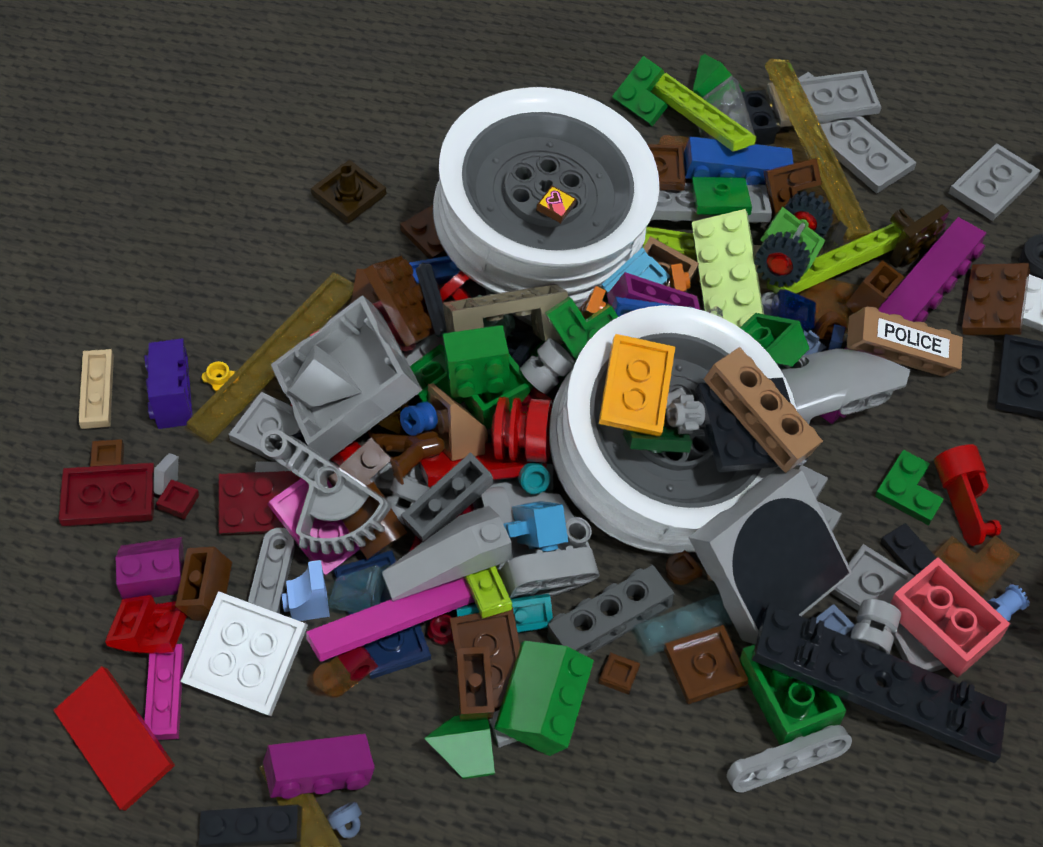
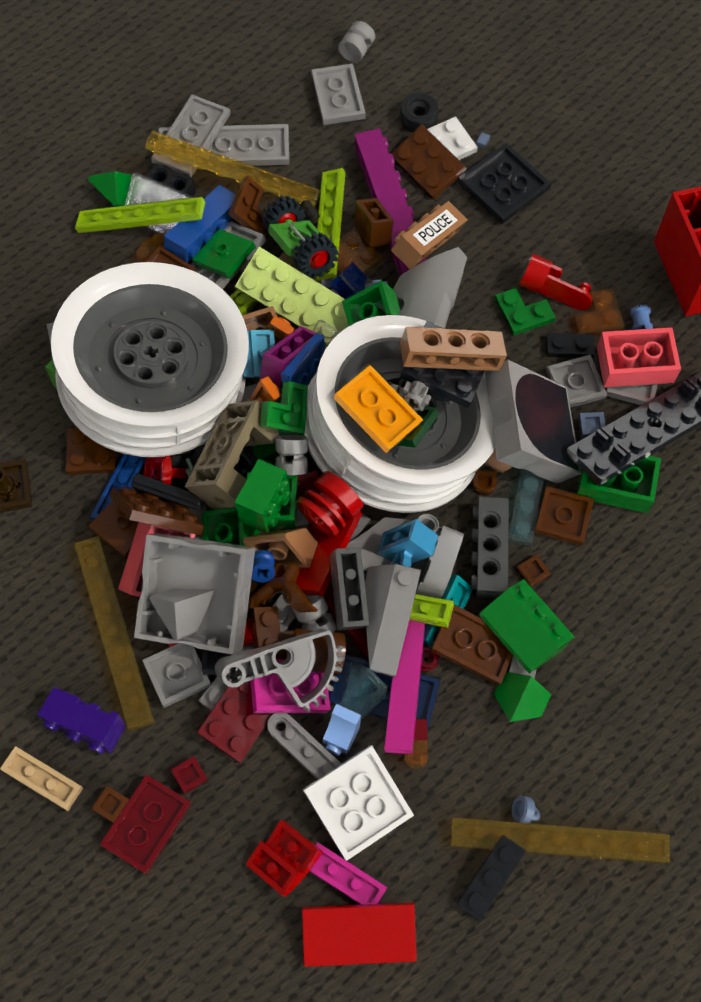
camera: 55 degrees left, 10 degrees up
(150, 568) = (233, 827): magenta slope -> none
(164, 472) = (164, 771): light grey tile -> none
(202, 577) = (281, 797): reddish brown brick -> none
(214, 370) = (93, 678): yellow plate -> none
(318, 766) = (482, 804): magenta brick -> none
(474, 683) = (496, 664): reddish brown brick -> none
(534, 478) = (363, 524): teal tile -> none
(556, 204) = (184, 355): tile -> none
(636, 94) = (81, 242): green plate -> none
(788, 758) = (658, 522): light grey plate -> none
(826, 323) = (376, 267): reddish brown tile -> none
(836, 337) = (390, 272): dark blue tile -> none
(876, 624) = (615, 401): light grey wheel -> none
(917, 234) = (350, 166): dark brown plate -> none

